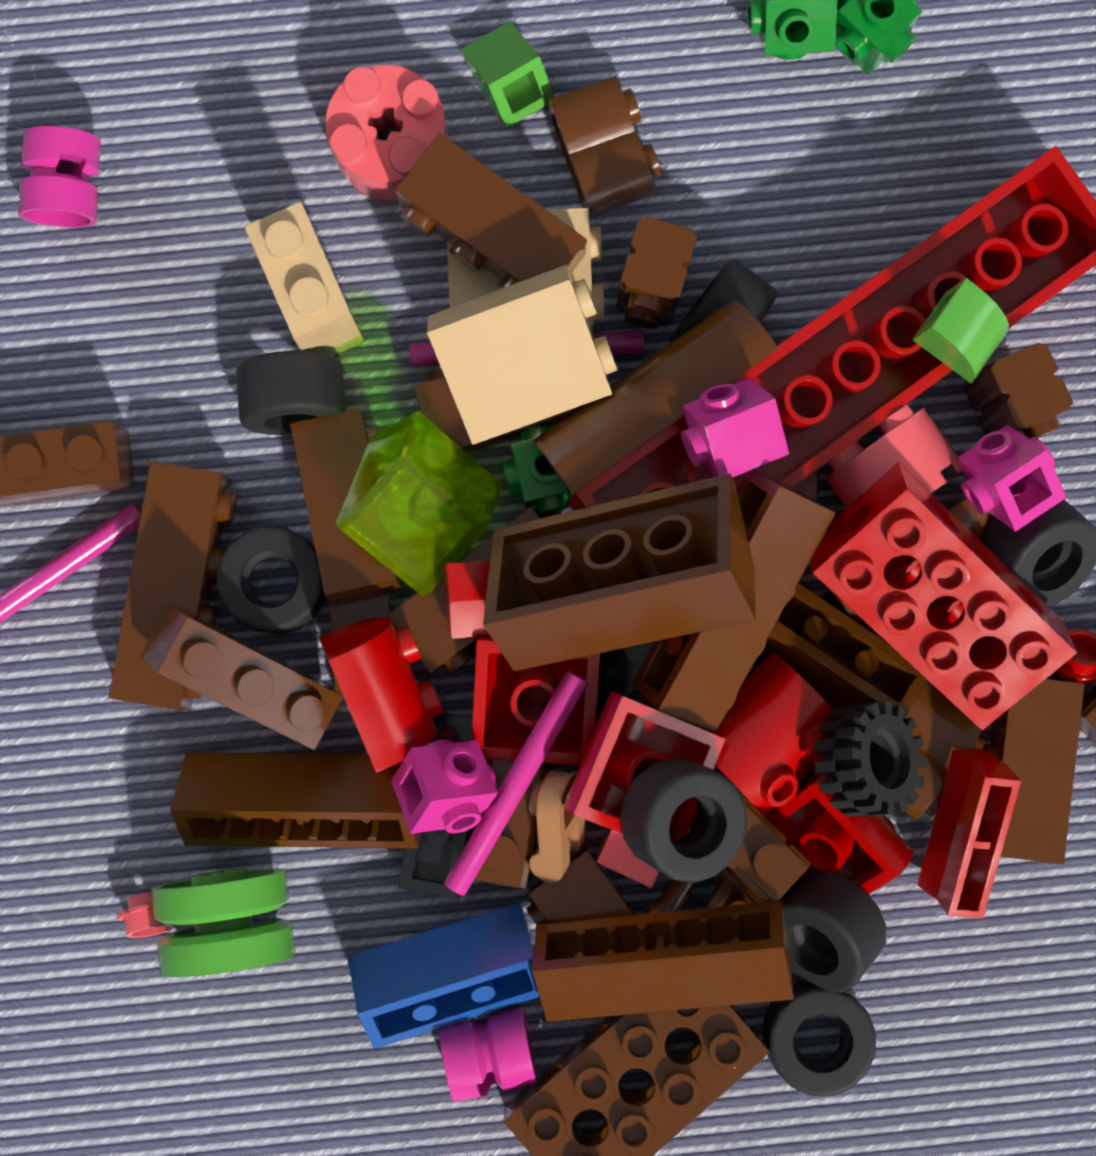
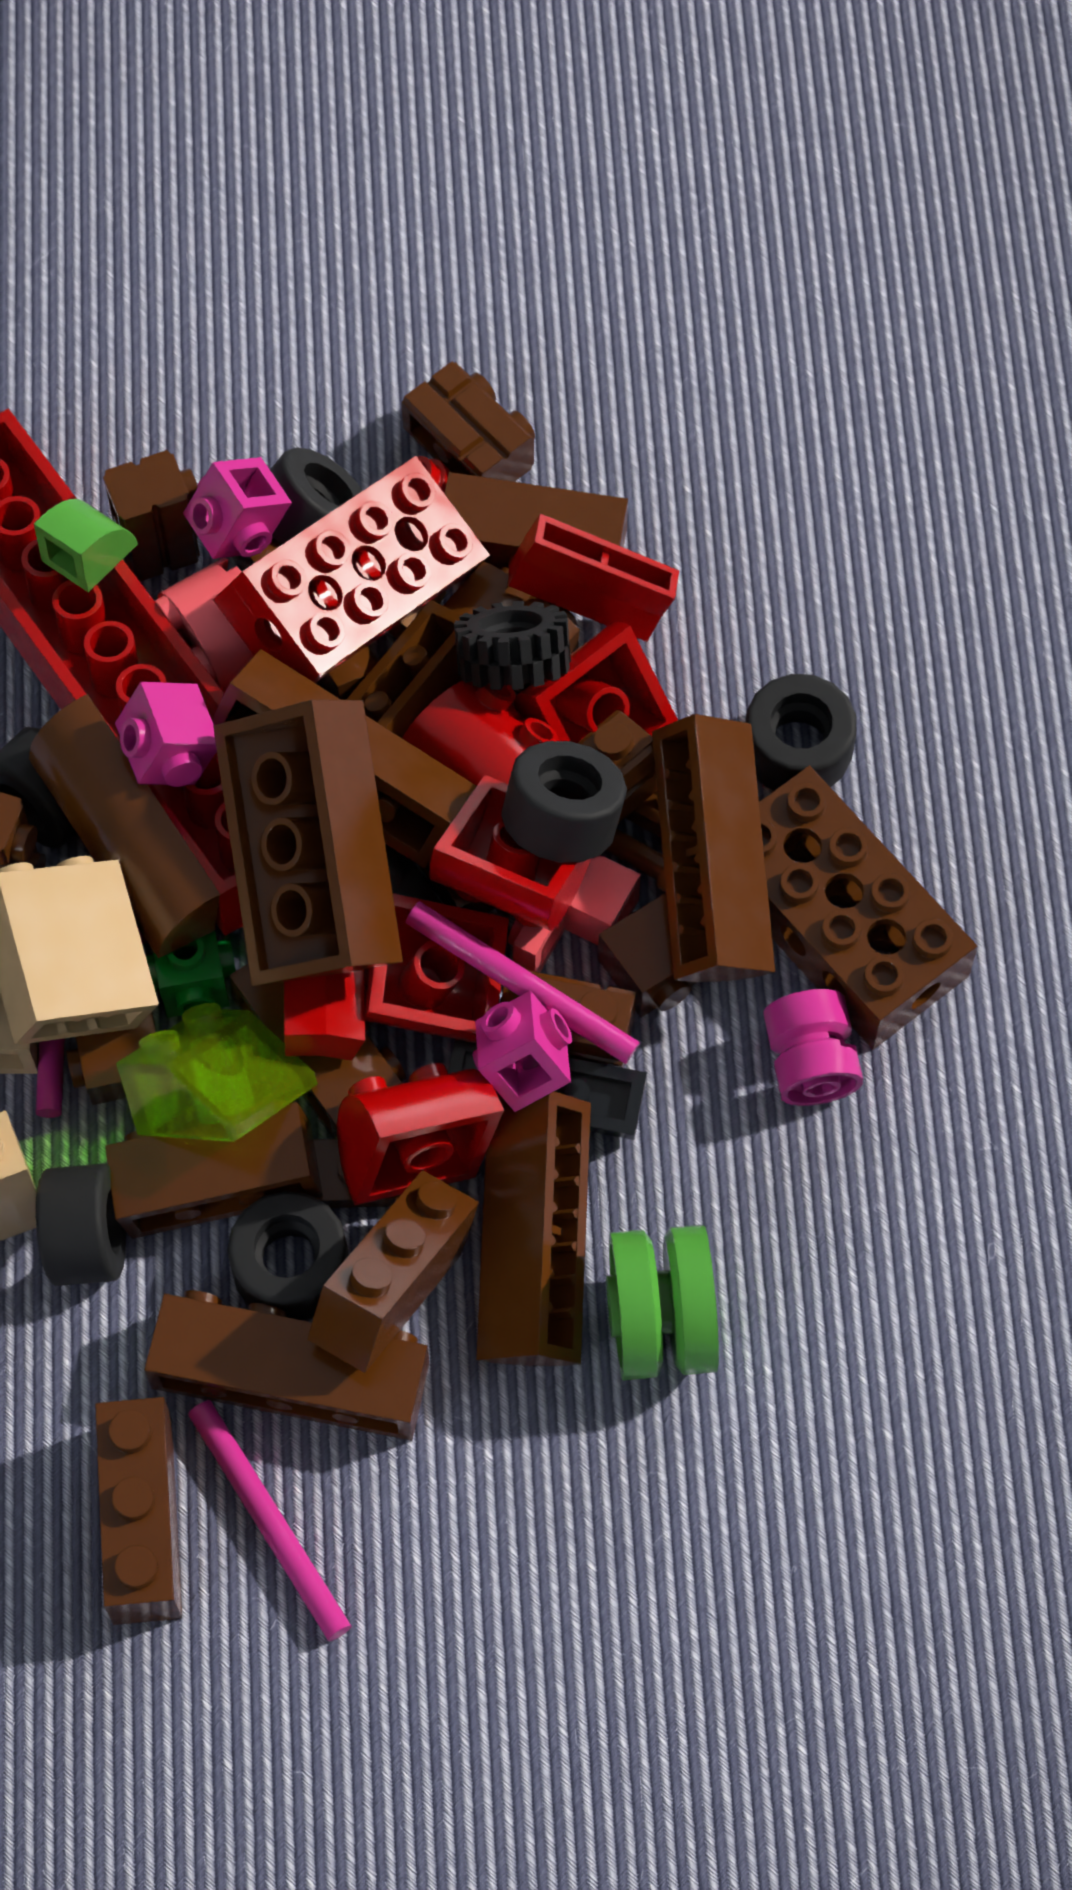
camera: 85 degrees left, 20 degrees down
(140, 919) = (657, 1406): coral plate -> none
(444, 975) = (727, 1082): blue brick -> none
(558, 830) = (581, 958): medium nougat plate -> none
(831, 931) = (677, 679): black tyre -> none

